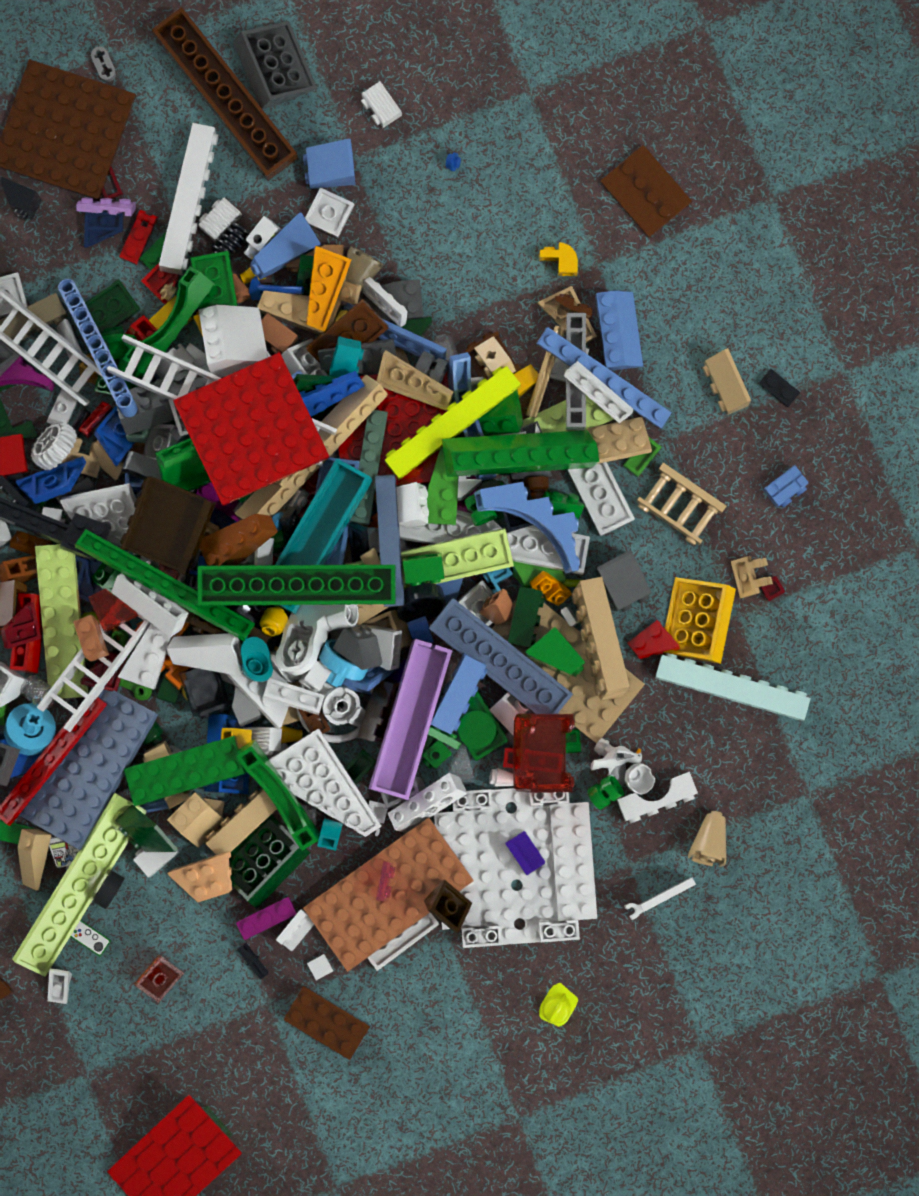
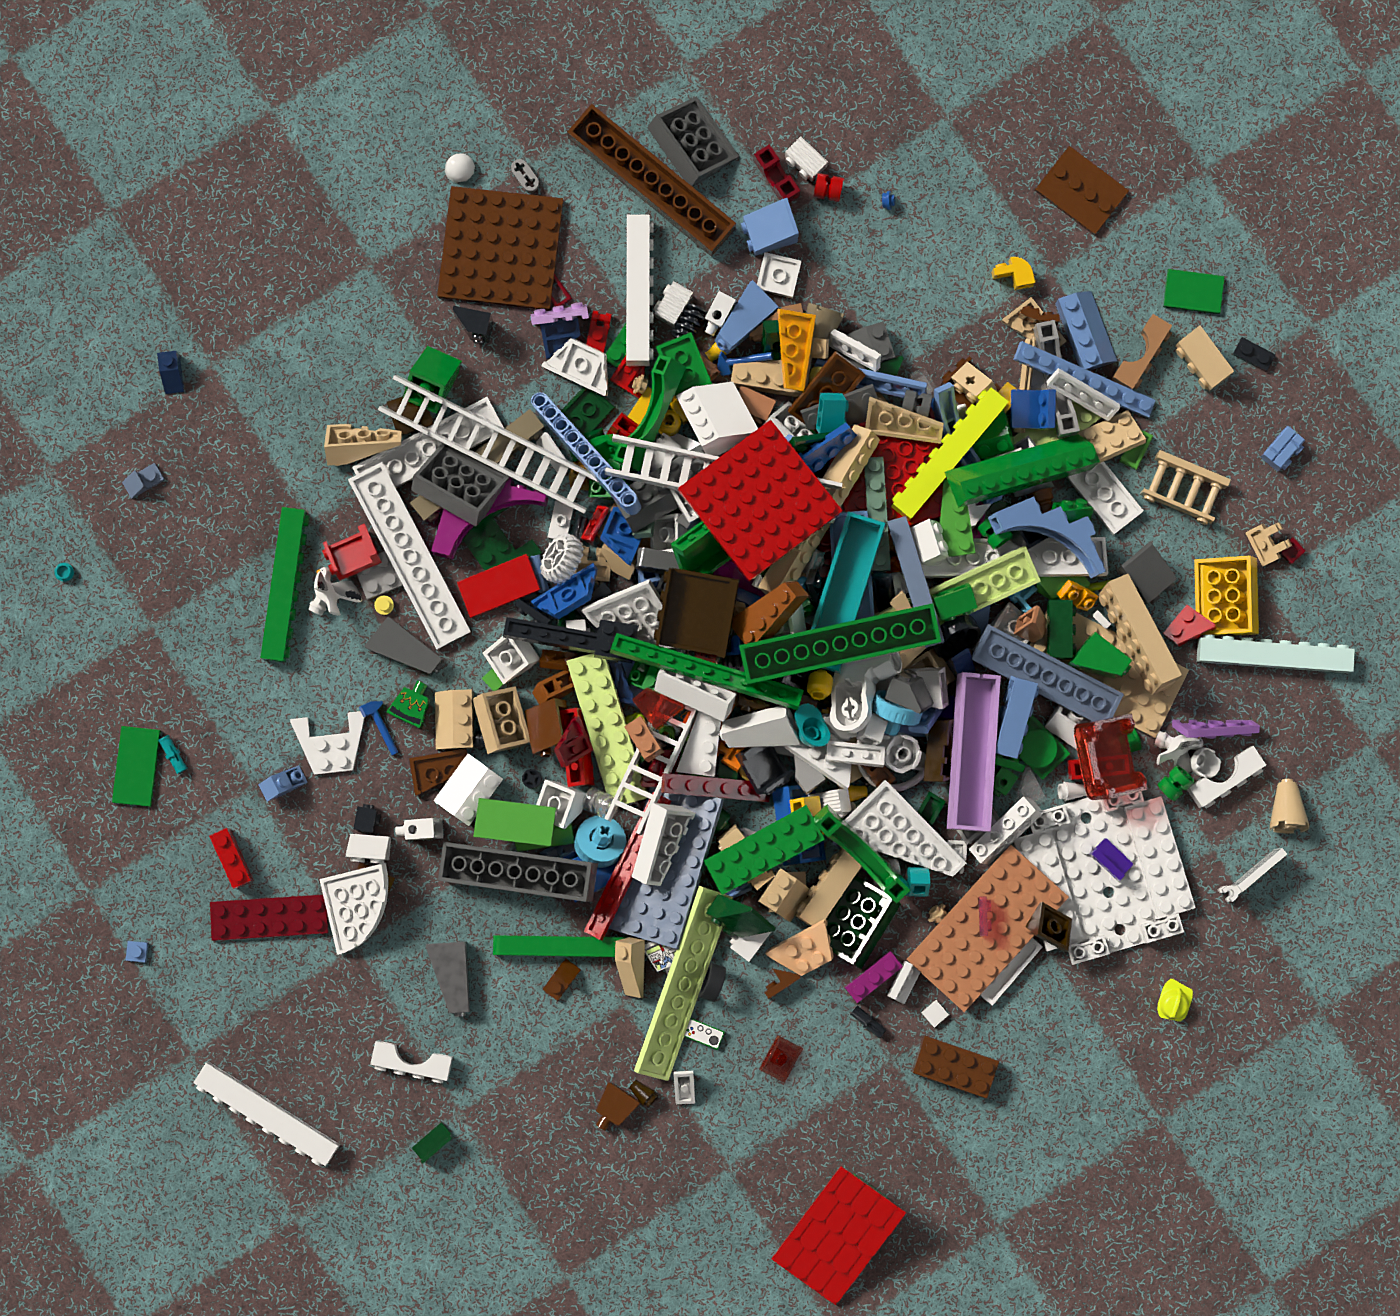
camera: 15 degrees left, 0 degrees up
(18, 983) = (643, 1093): none -> dark brown cone
(29, 444) = (535, 561): none -> medium blue axle
(41, 43) = (459, 168): none -> white hair
(85, 741) = (660, 842): none -> white wedge
(116, 261) = (581, 364): none -> white wing
(147, 699) = (710, 787): none -> plate
(180, 902) = (785, 978): none -> reddish brown slope
(193, 337) = (673, 418): none -> yellow head
(343, 869) = (937, 913): none -> tan plate
(348, 114) = (771, 169): none -> dark red arch
(396, 137) = (828, 187): none -> red wheel
(545, 395) = (1033, 409): none -> blue bracket
(657, 746) = (1216, 728): none -> medium lavender wing
(685, 347) = (1154, 333): none -> medium nougat arch
(733, 313) = (1193, 291): none -> green tile

